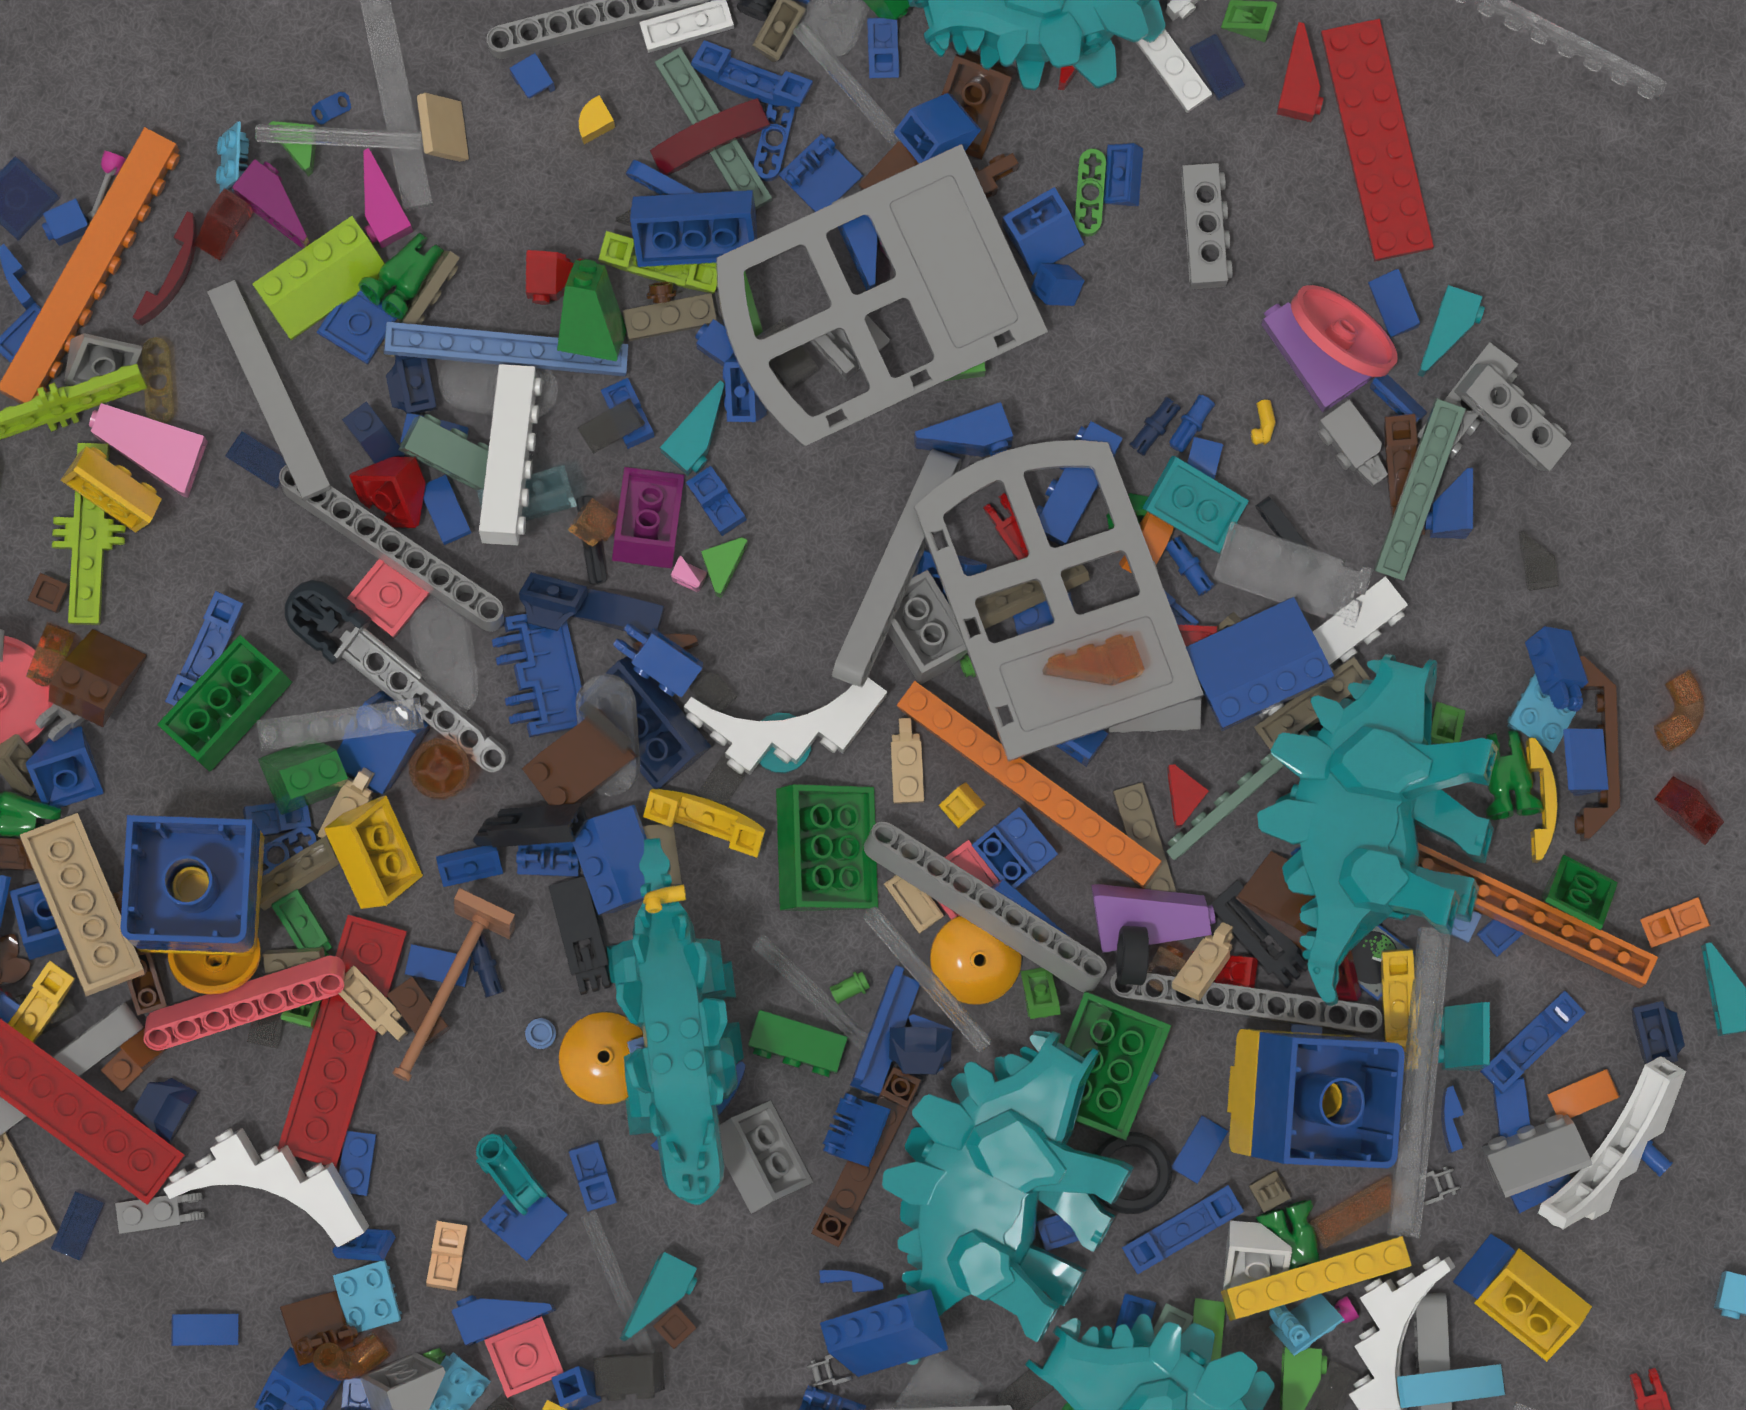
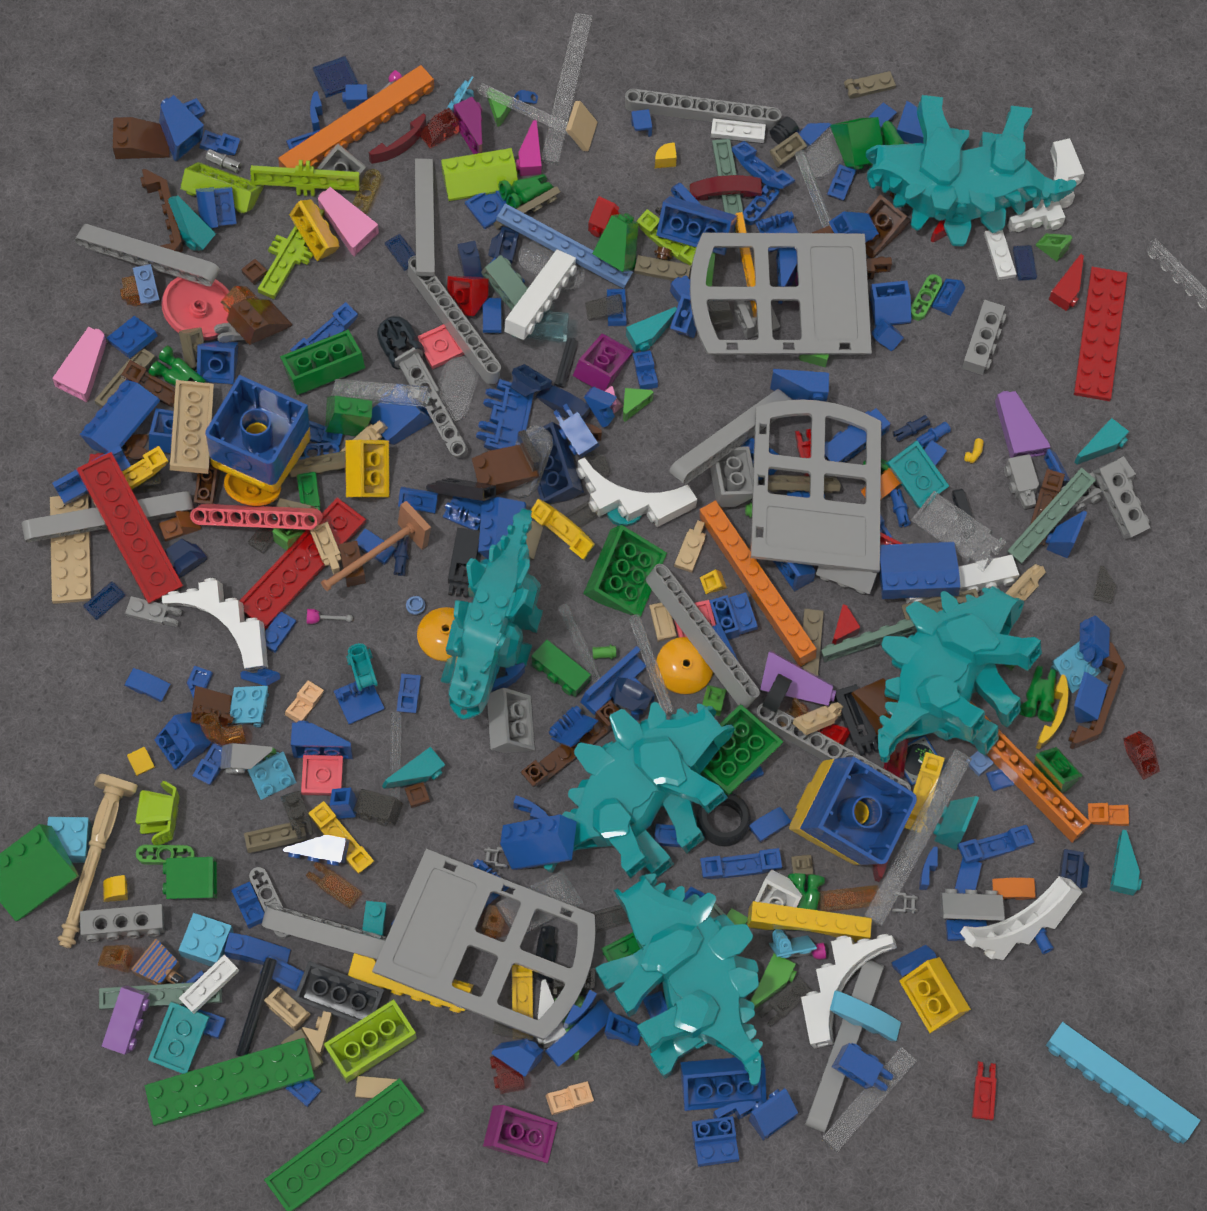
camera: 20 degrees right, 15 degrees down
(276, 1289) = (199, 677): none -> blue tile
(400, 1117) = (314, 616): none -> hinge
(439, 769) = (425, 440): clear orange cylinder -> none
(593, 523) = (571, 348): clear orange brick -> none
(663, 895) = (516, 531): yellow arm -> none
(677, 596) = (600, 404): none -> blue slope
(795, 254) = (746, 260): none -> light orange tile
(1105, 664) = (828, 527): clear orange slope -> none
(1344, 331) = (1041, 414): coral dish -> none
(1394, 303) = (1076, 419): blue slope -> none
(1420, 615) = (1026, 583): none -> tan hinge
(1686, 714) = (1160, 701): clear orange cylinder -> none

